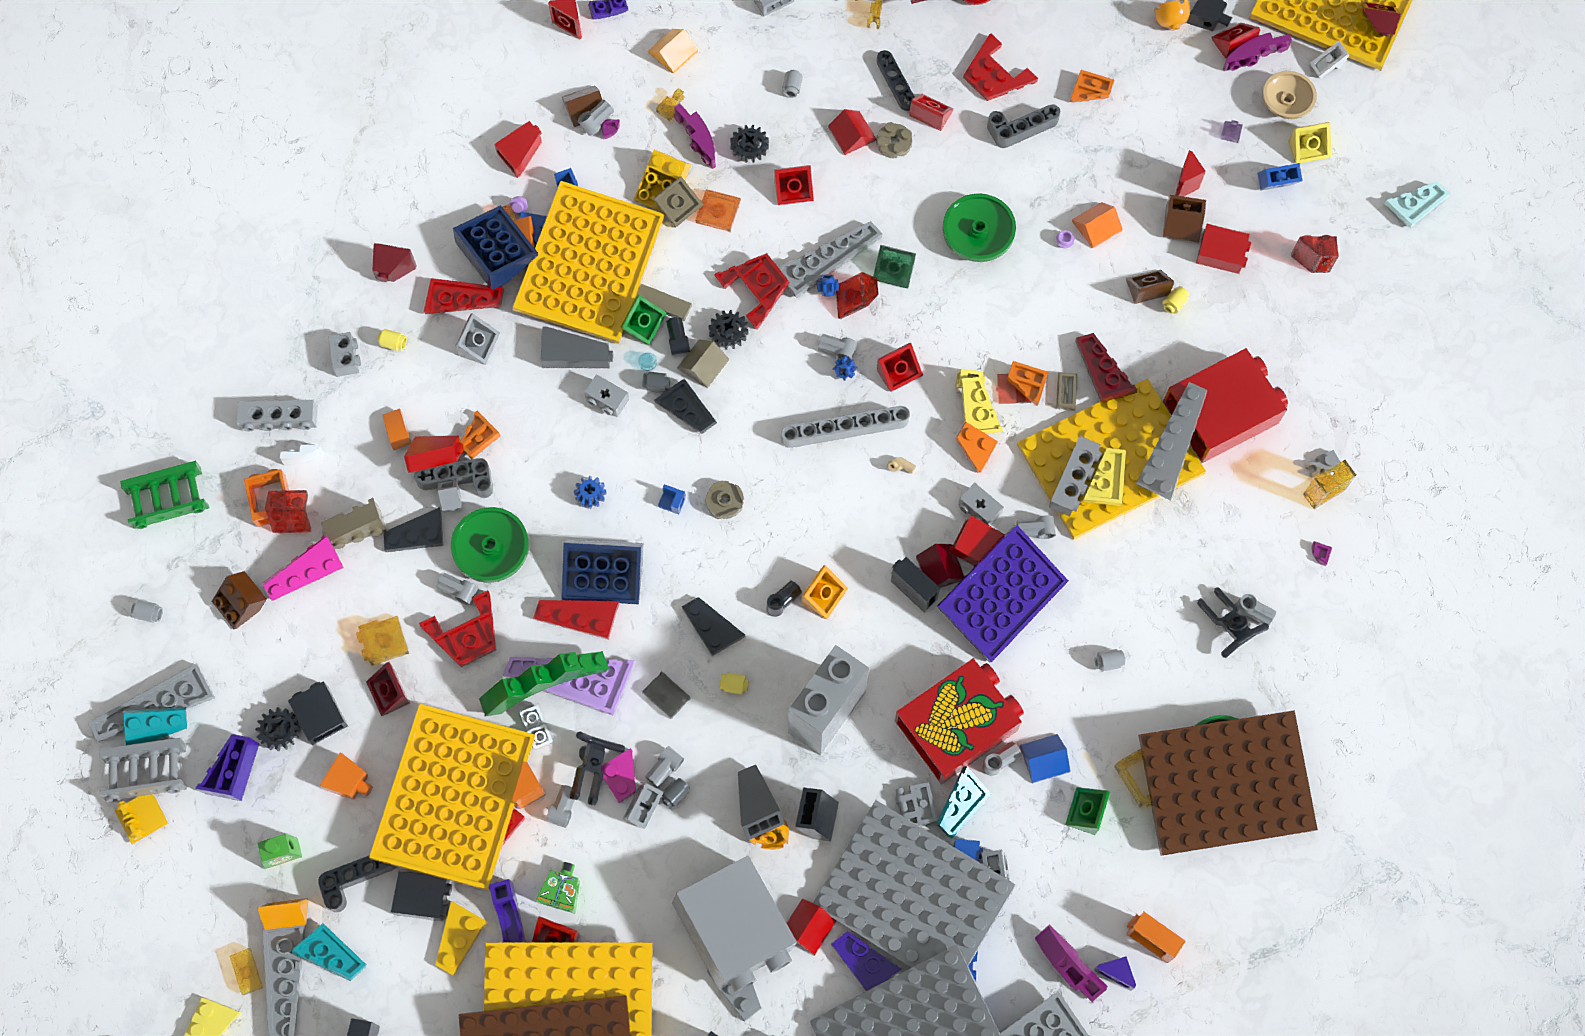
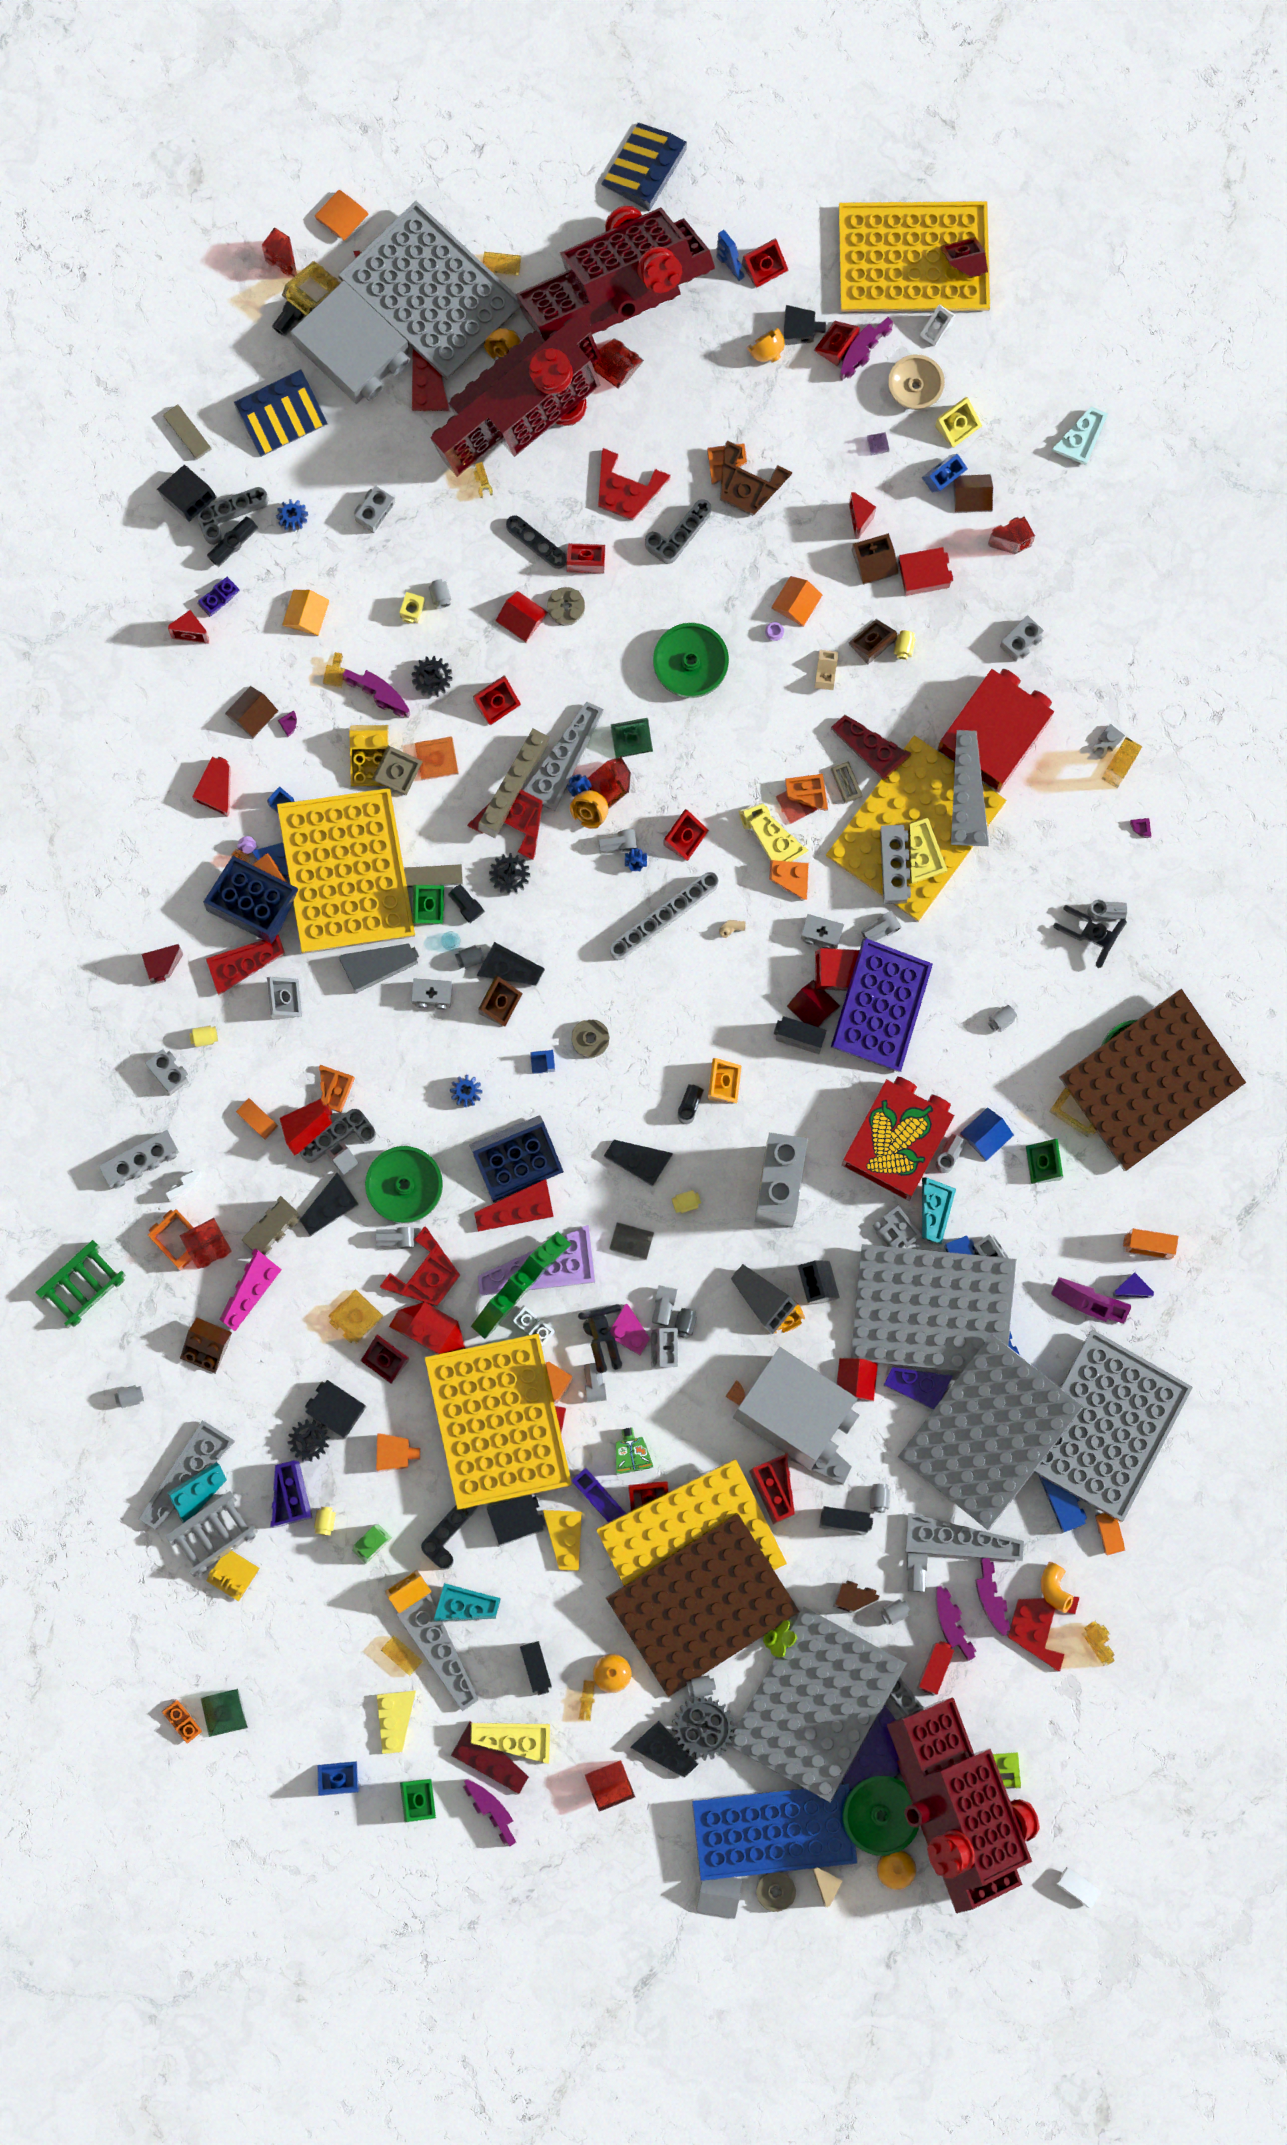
camera: 30 degrees left, 10 degrees up
(15, 929) = (182, 1721): none -> orange slope
(58, 941) = (224, 1712): none -> clear green slope
(249, 809) = (324, 1521): none -> light yellow brick
(442, 682) = (429, 1328): none -> red wedge
(592, 120) = (270, 726): light grey piece -> none
(660, 429) = (499, 1001): none -> reddish brown slope
(676, 990) = (774, 1487): none -> red wedge
(687, 879) = (736, 1393): none -> clear orange tile
(704, 362) = (502, 916): slope -> none
(745, 269) = (512, 783): none -> dark tan arch
(762, 77) = (411, 600): none -> light yellow brick
(826, 306) = (589, 808): none -> light orange cylinder
(1095, 290) = (826, 669): none -> tan slope
(1097, 116) = (743, 488): none -> reddish brown wing
(1283, 339) = (1018, 635): none -> light grey brick
(1296, 207) = (973, 493): none -> reddish brown slope

